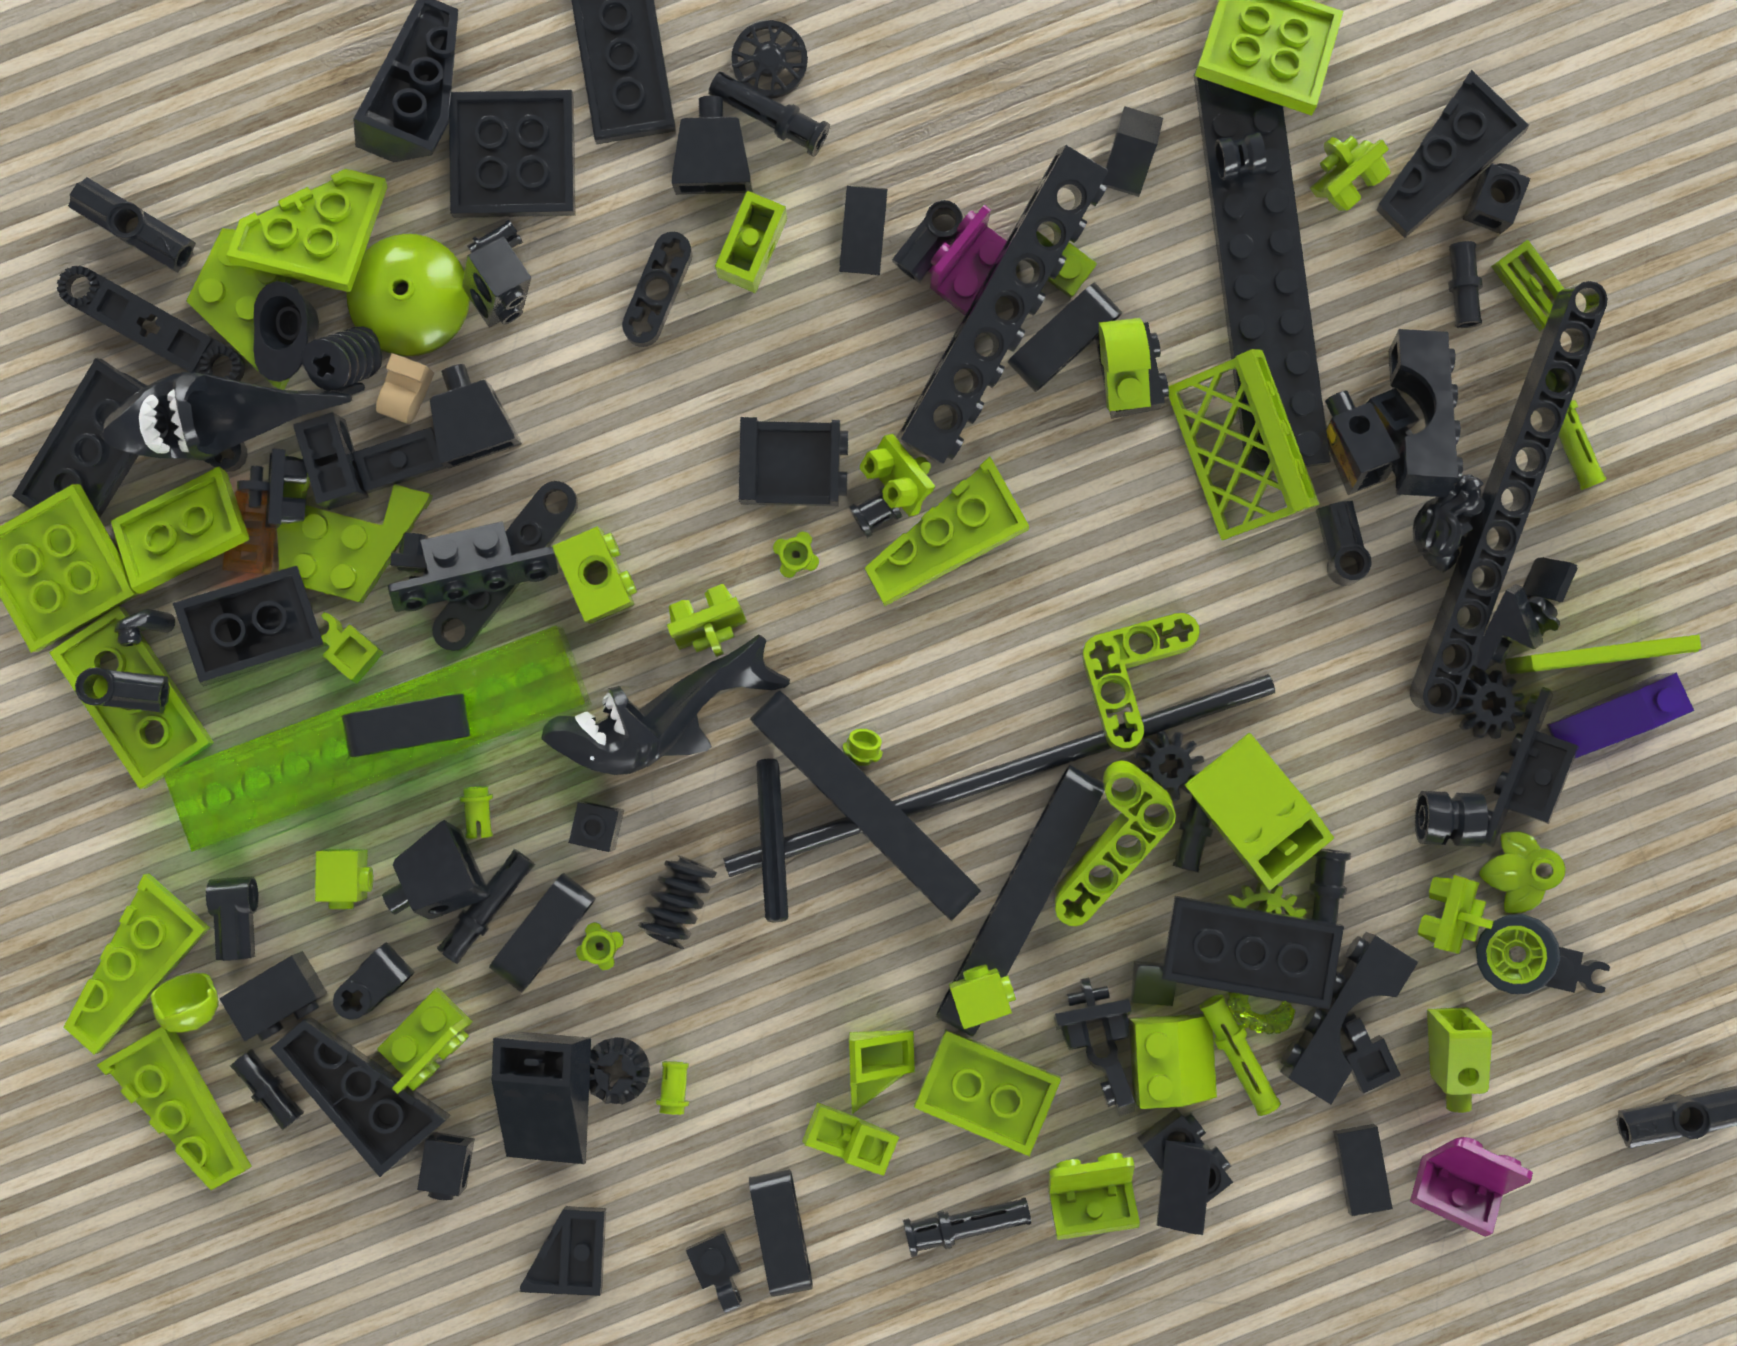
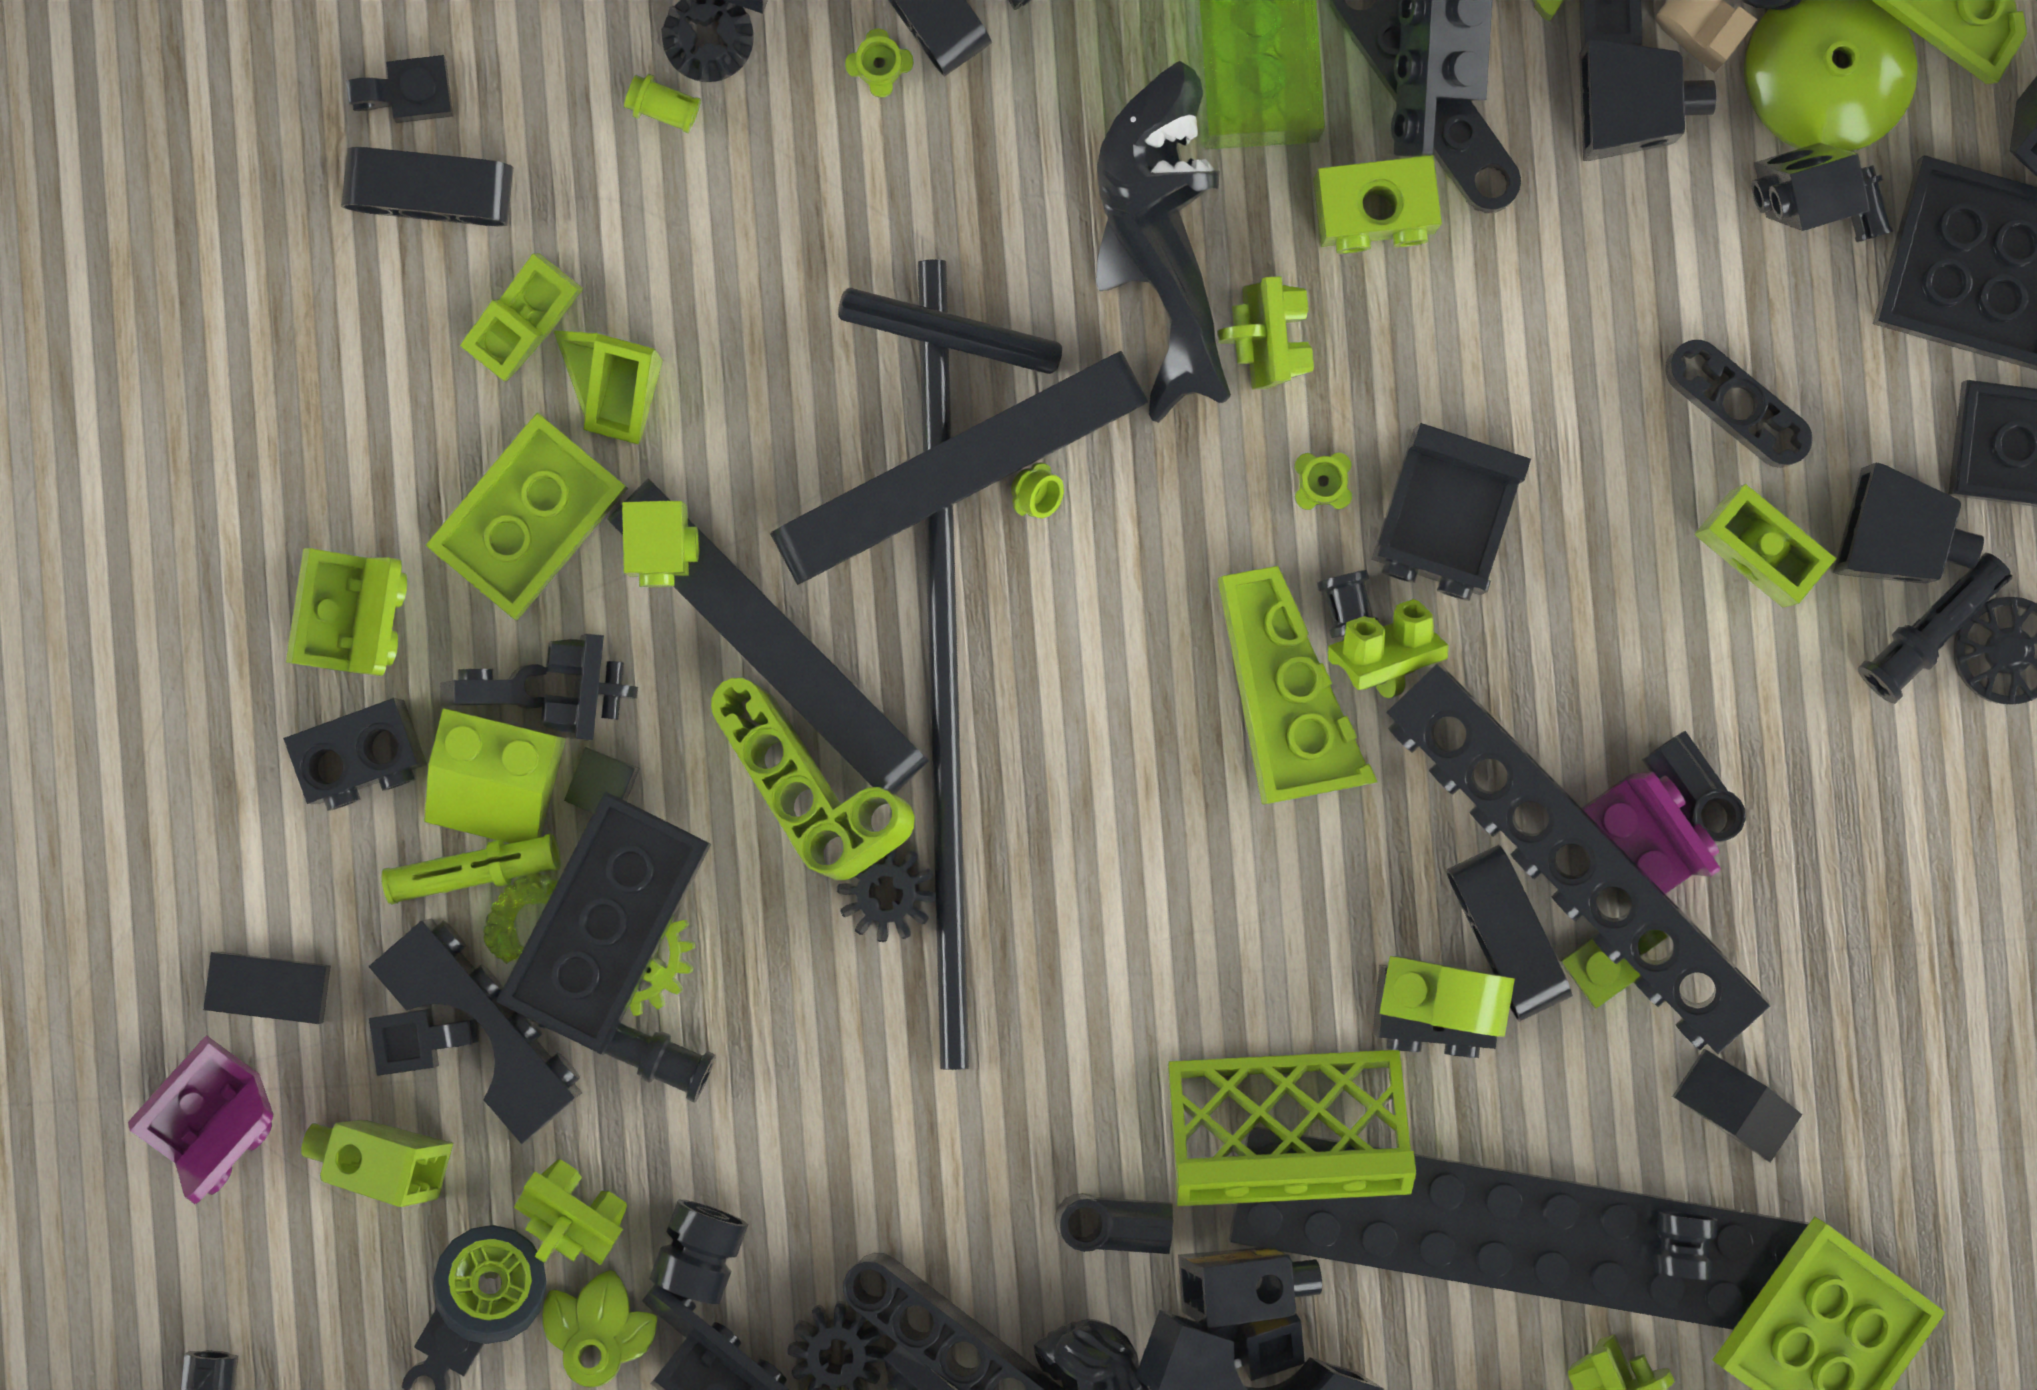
camera: 105 degrees right, 0 degrees up
(596, 826) = (1040, 104): black brick -> none
(677, 900) = (908, 182): black piece -> none
(863, 230) = (1737, 705): black slope -> none
(947, 1228) = (363, 406): black pin -> none
(1122, 658) = (1049, 879): lime beam -> none
(1184, 1186) = (322, 734): black slope -> none
(1193, 838) = (790, 904): black pin -> none
(1259, 812) = (788, 991): lime slope -> none

